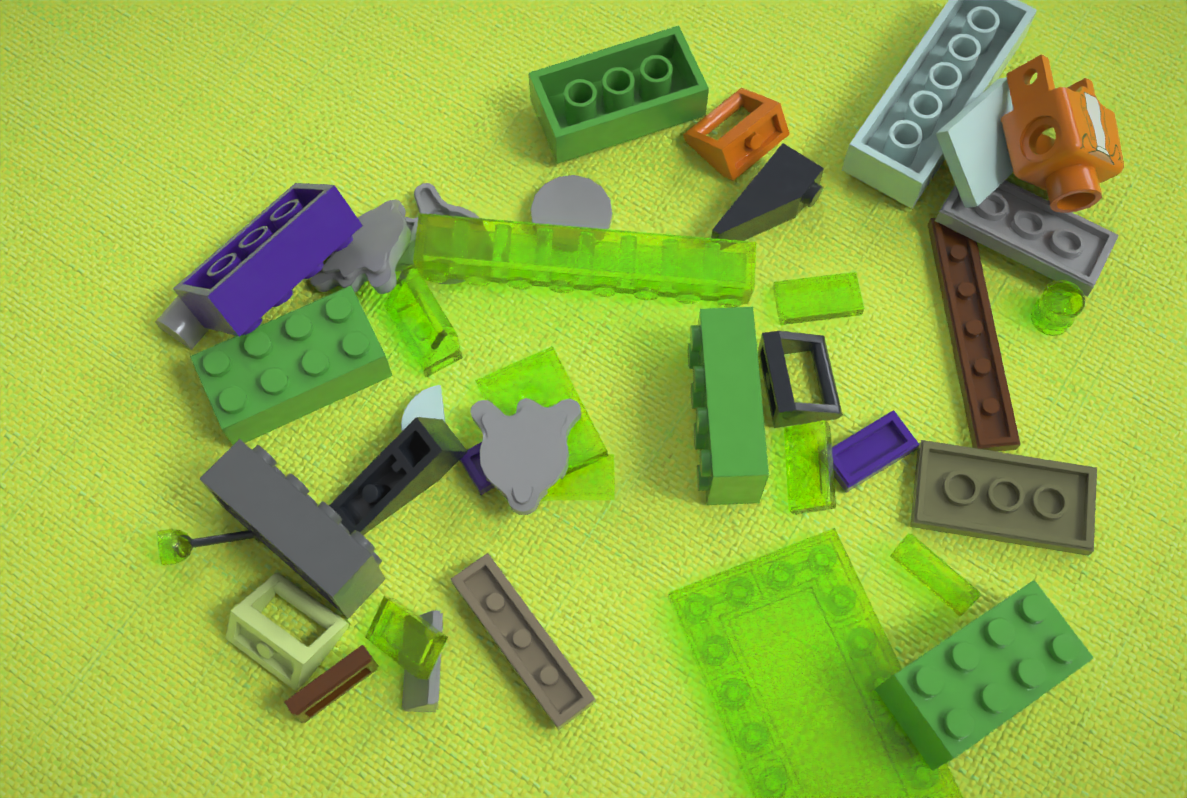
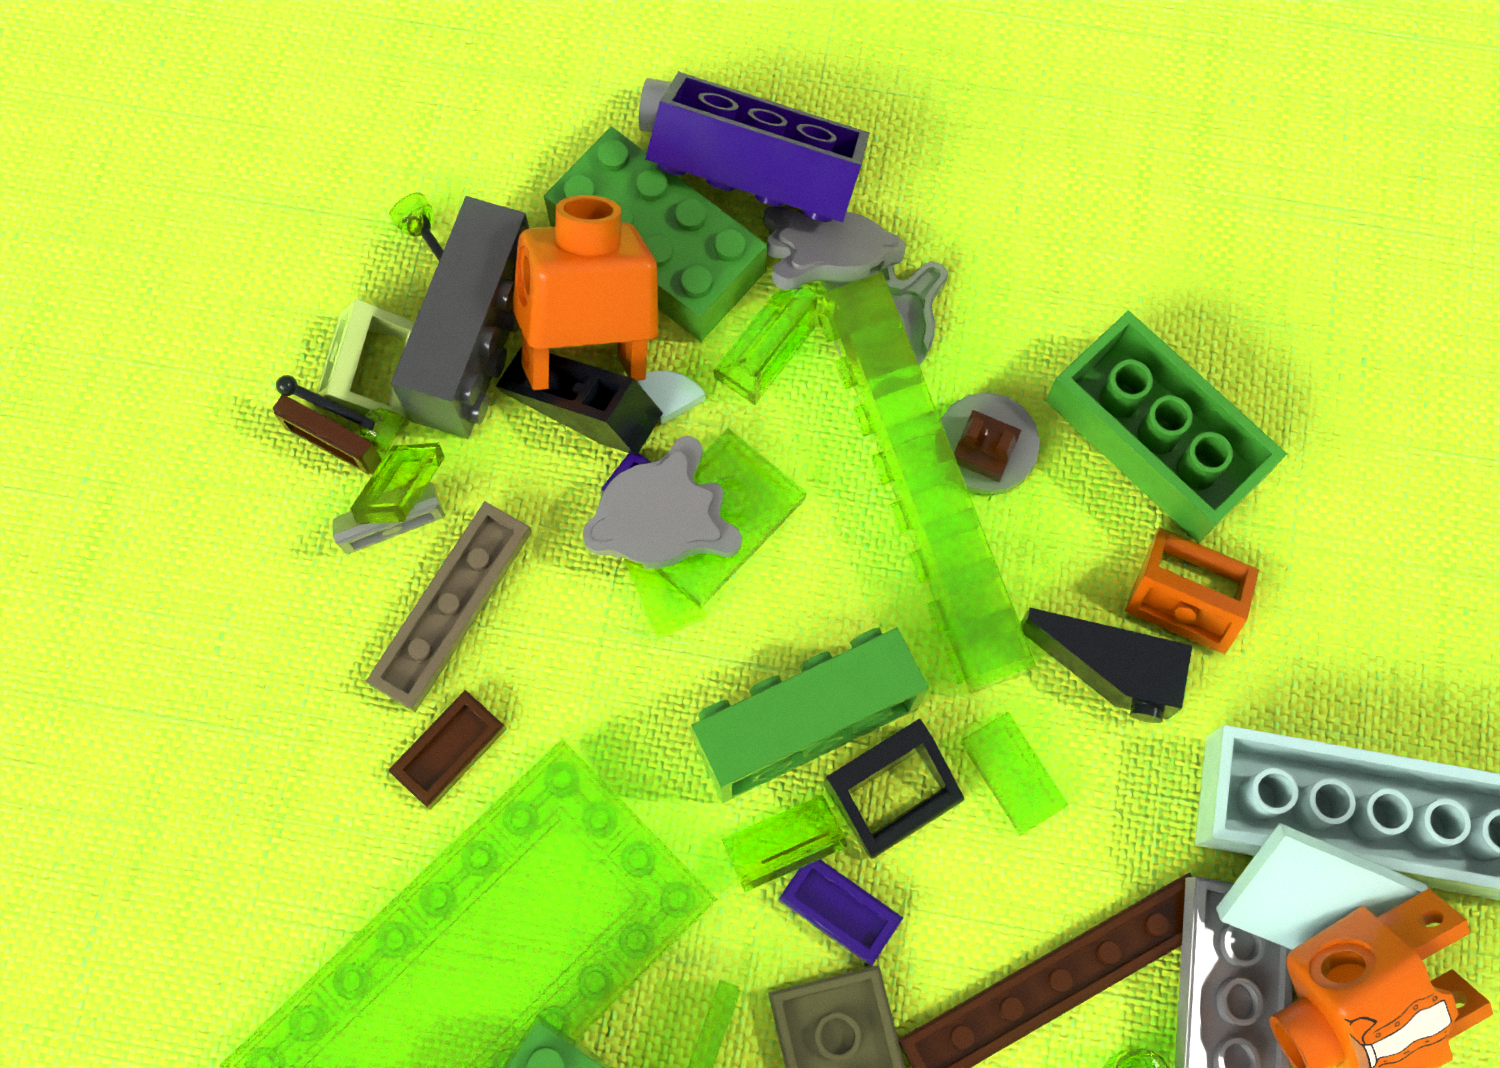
camera: 65 degrees right, 5 degrees up
(327, 422) = (585, 286): none -> orange piece
(346, 637) = (377, 425): none -> hinge
(577, 207) = (986, 445): none -> reddish brown tile
(636, 688) = (447, 749): none -> reddish brown tile

